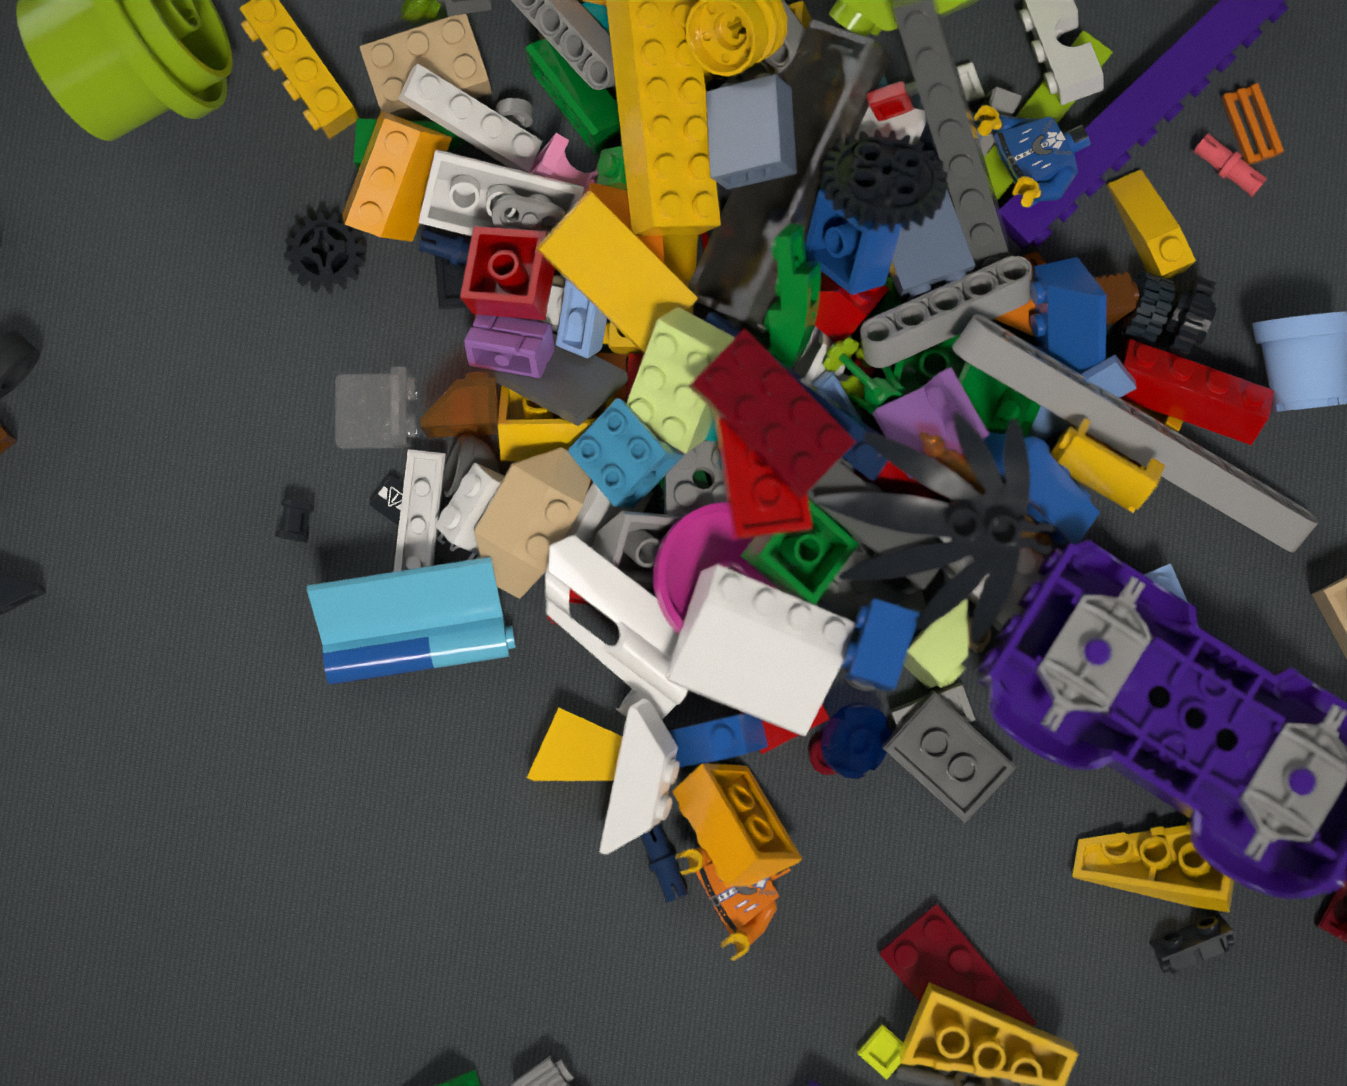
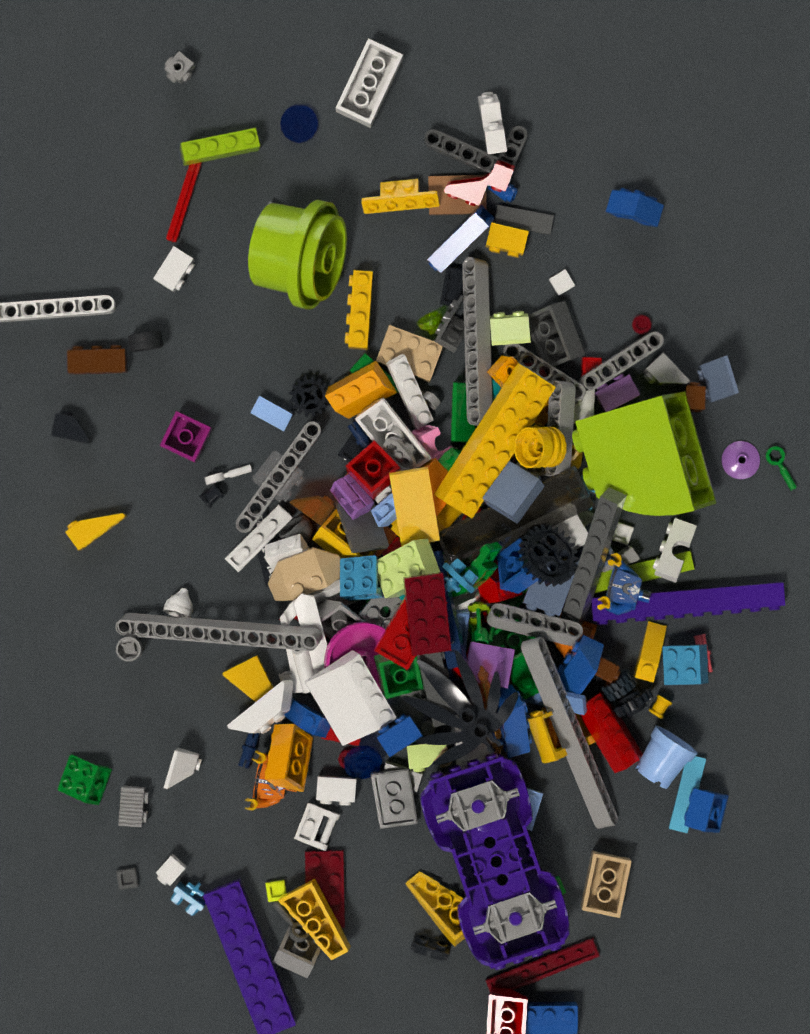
camera: 40 degrees right, 5 degrees up
(145, 723) = (88, 530): none -> yellow slope
(182, 460) = (186, 437): none -> magenta brick
(283, 483) = (231, 473): none -> white piece
(288, 324) = (271, 413): none -> light blue slope
(352, 856) = (129, 648): none -> light grey wheel
(365, 391) = (280, 467): none -> light grey beam
(378, 728) = (179, 604): none -> white helmet
(410, 621) = (225, 575): medium azure door -> none
(476, 699) = (226, 628): none -> light grey beam
(581, 973) = (182, 766): none -> white slope
(790, 321) = (466, 580): none -> dark azure hips
(849, 816) = (336, 789): none -> white brick
(853, 903) = (310, 824): none -> white plate
(890, 101) = (579, 523): red tile -> none
(1219, 197) = (685, 664): none -> dark azure brick
(1232, 294) = (660, 706): none -> yellow bush
(1265, 119) = (734, 645): orange tile -> none

